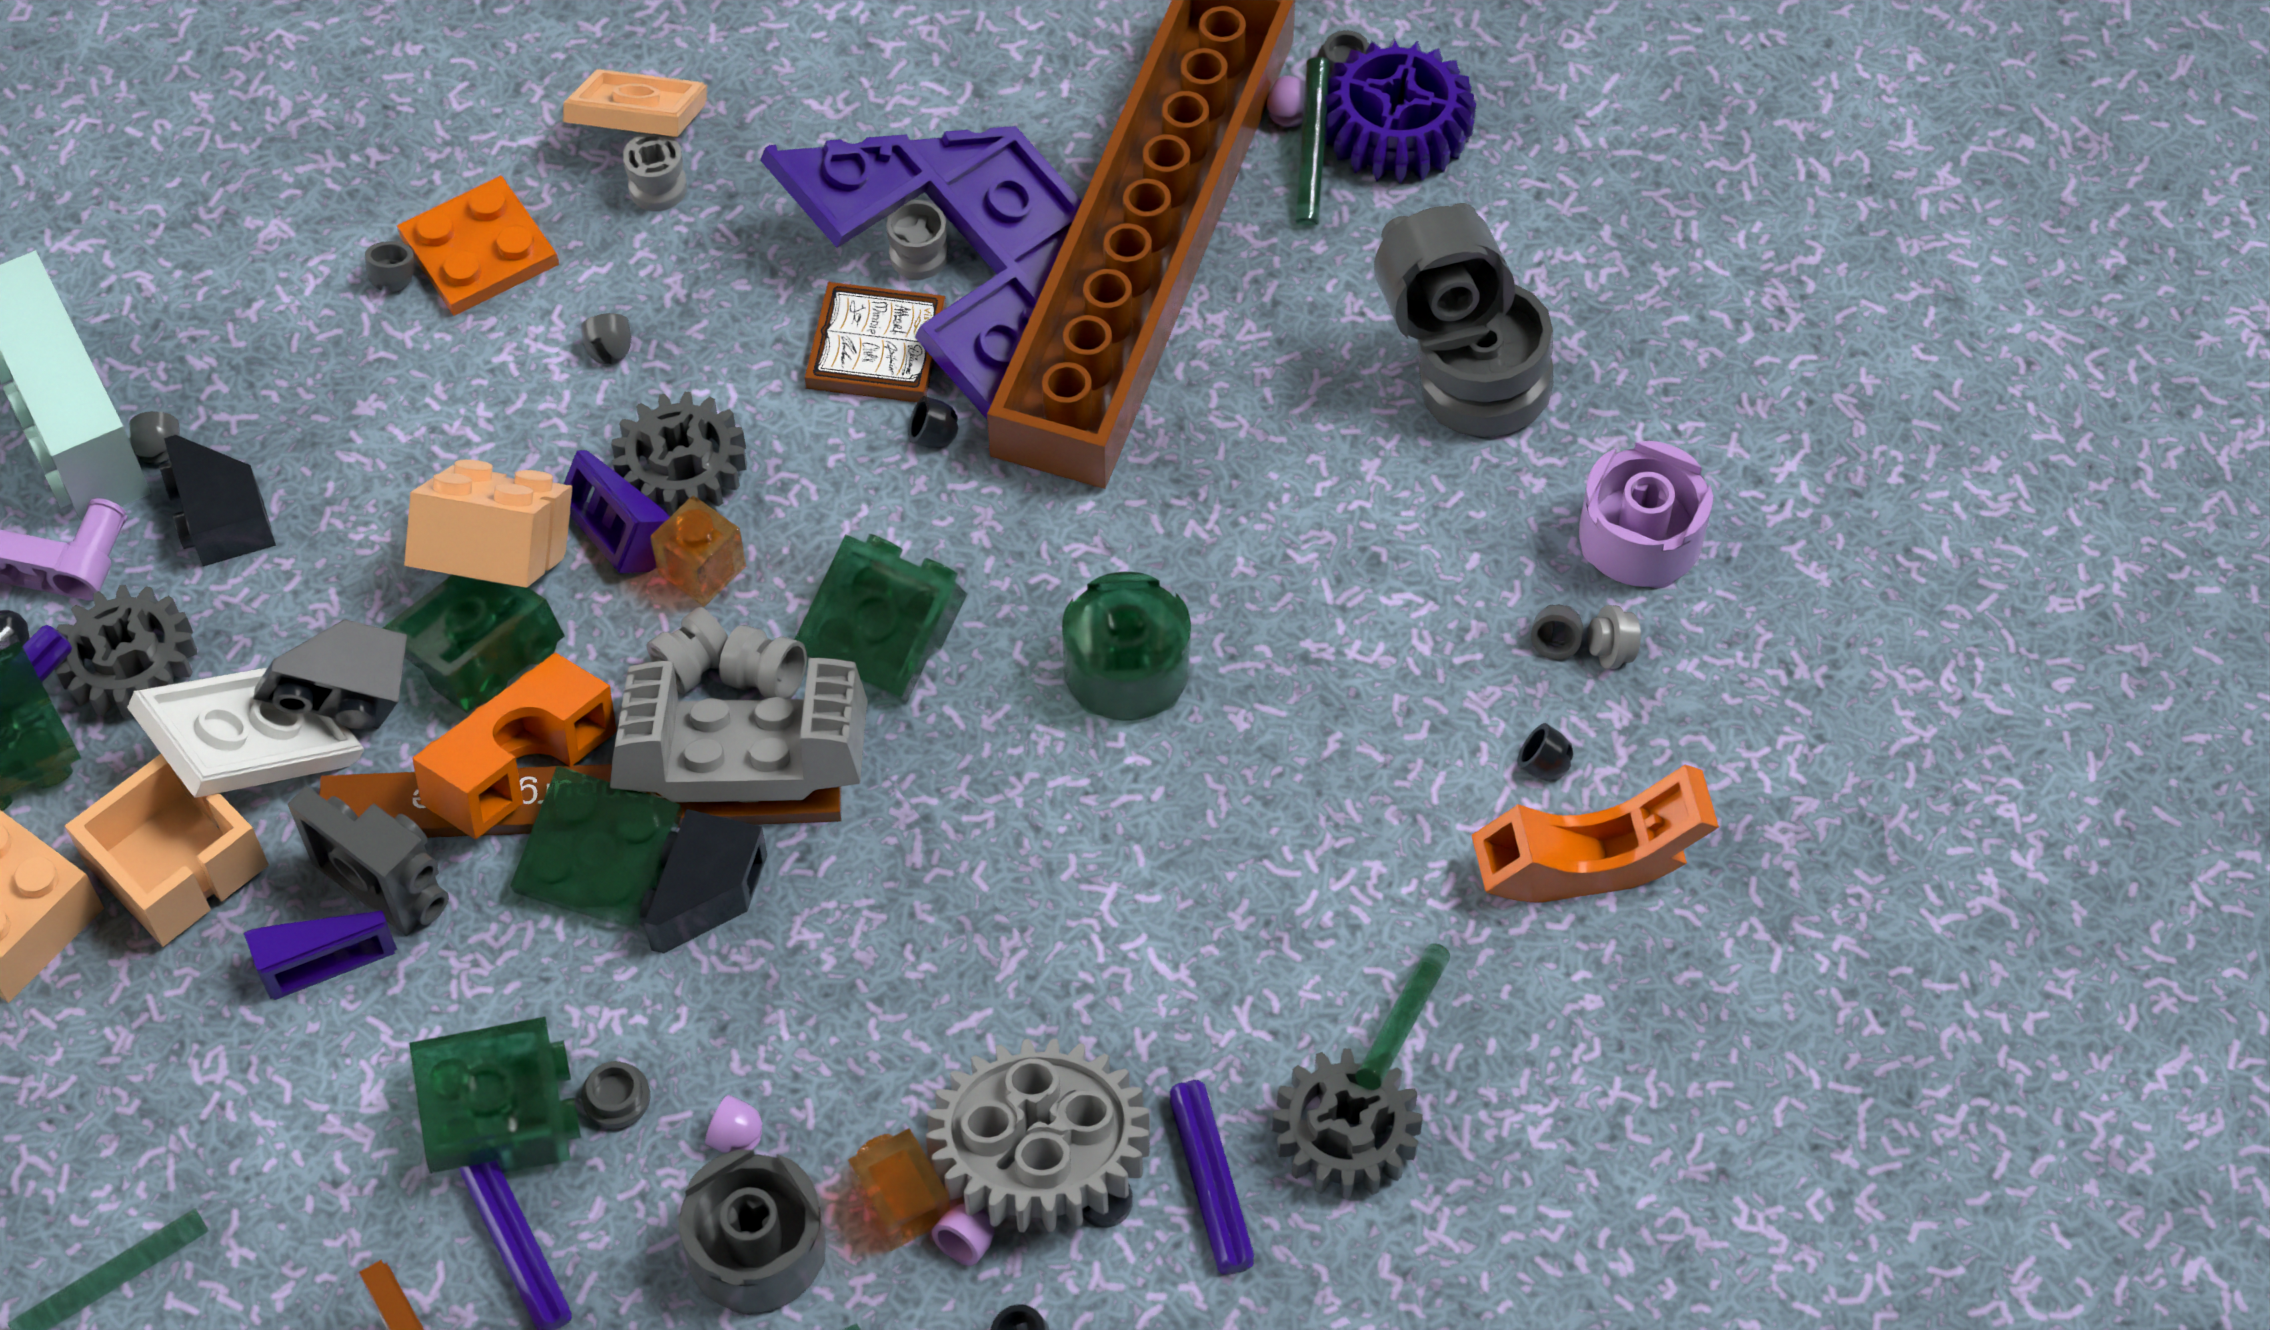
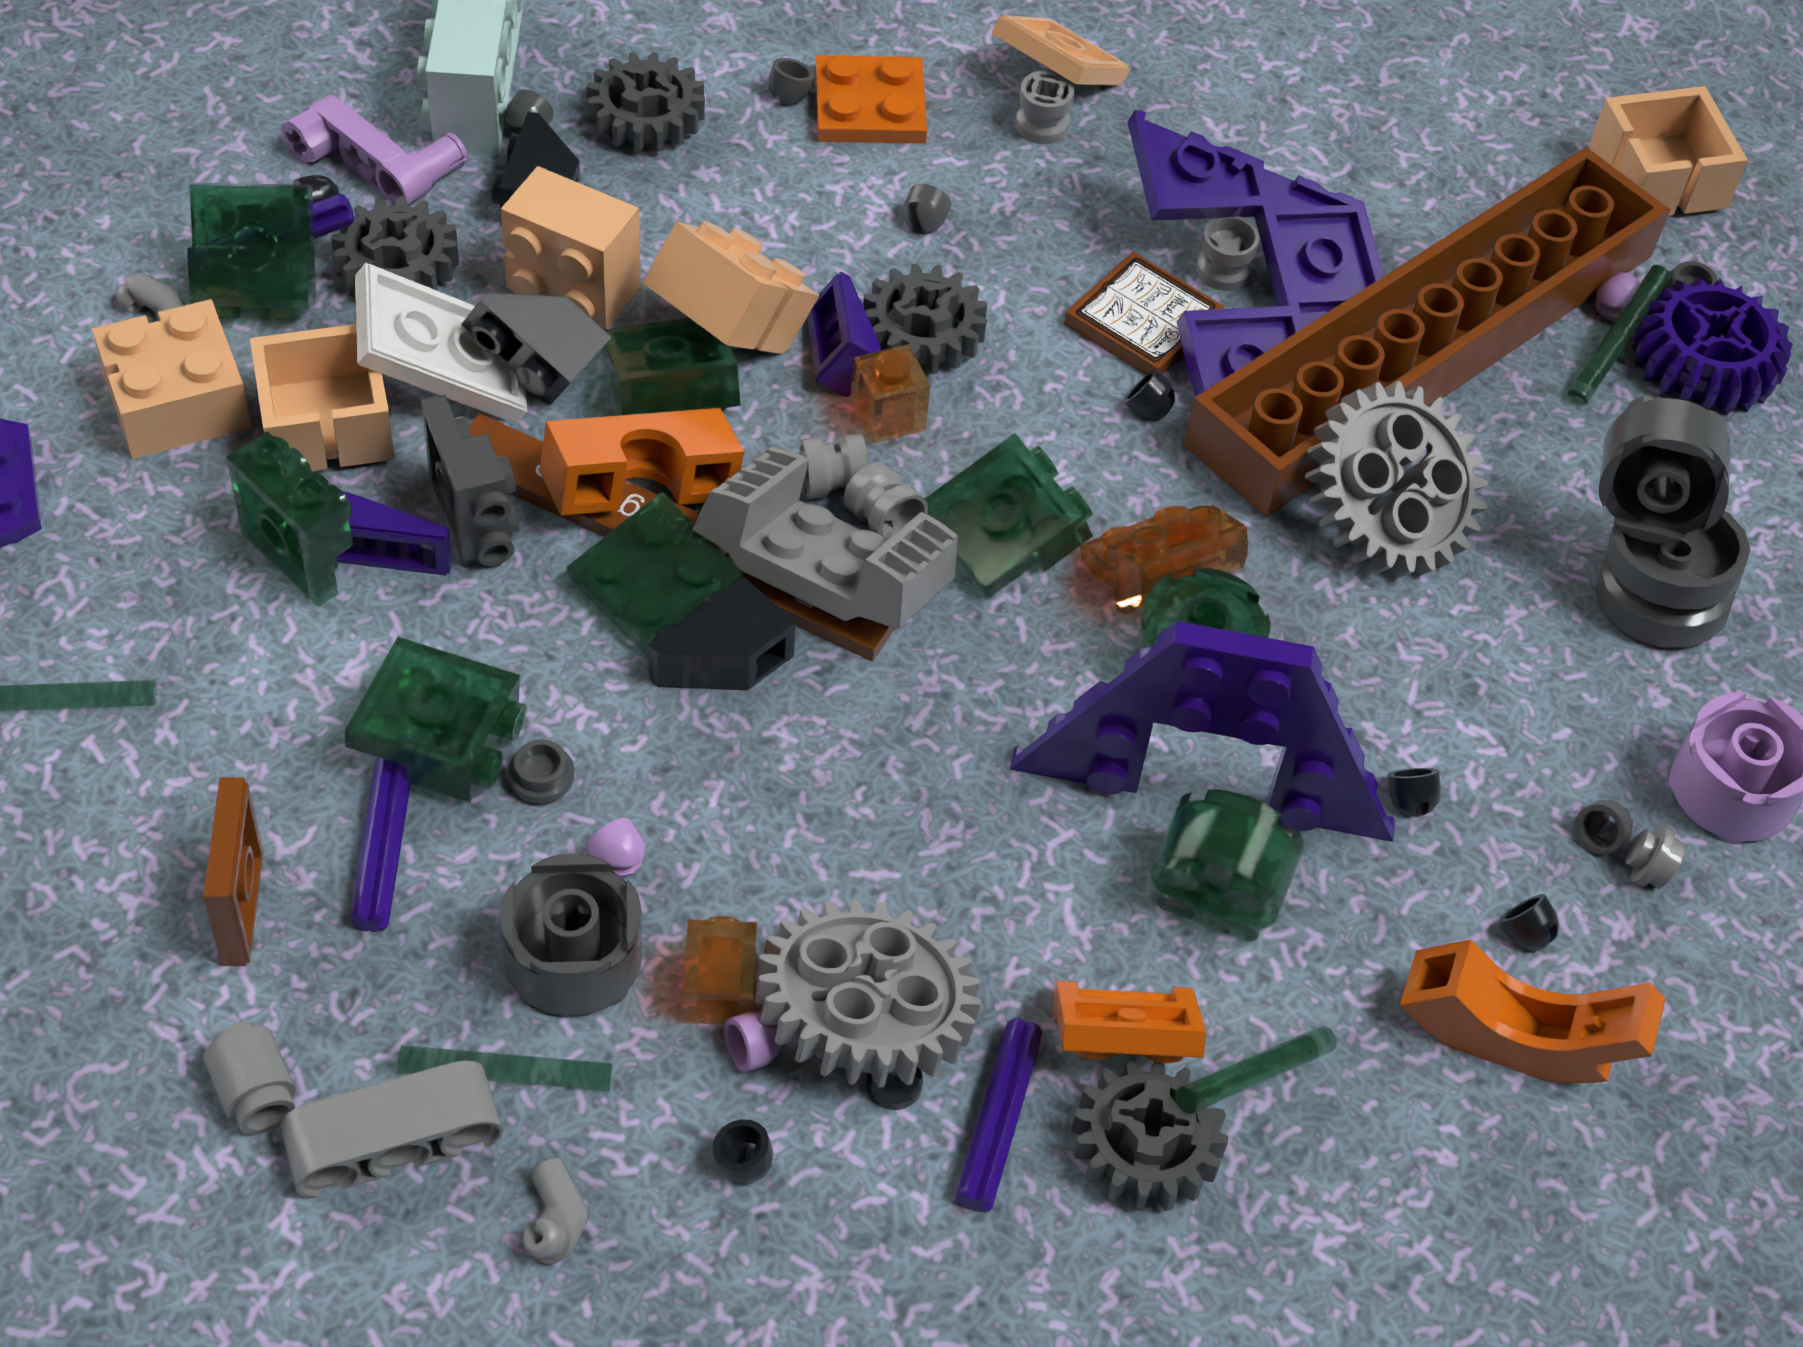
camera: 25 degrees right, 5 degrees down
(226, 979) = (291, 514): none -> clear green plate
(264, 363) = (645, 101): none -> dark grey gear
(305, 562) = (572, 245): none -> light nougat piece
(1040, 575) = (1169, 543): none -> clear orange brick
(1192, 698) = (1227, 688): none -> dark purple wing
(1206, 397) = (1432, 514): none -> light grey gear
(1272, 845) = (1226, 862): none -> clear green brick
(1274, 1034) = (1129, 1022): none -> orange plate
(1381, 683) = (1412, 787): none -> black hinge

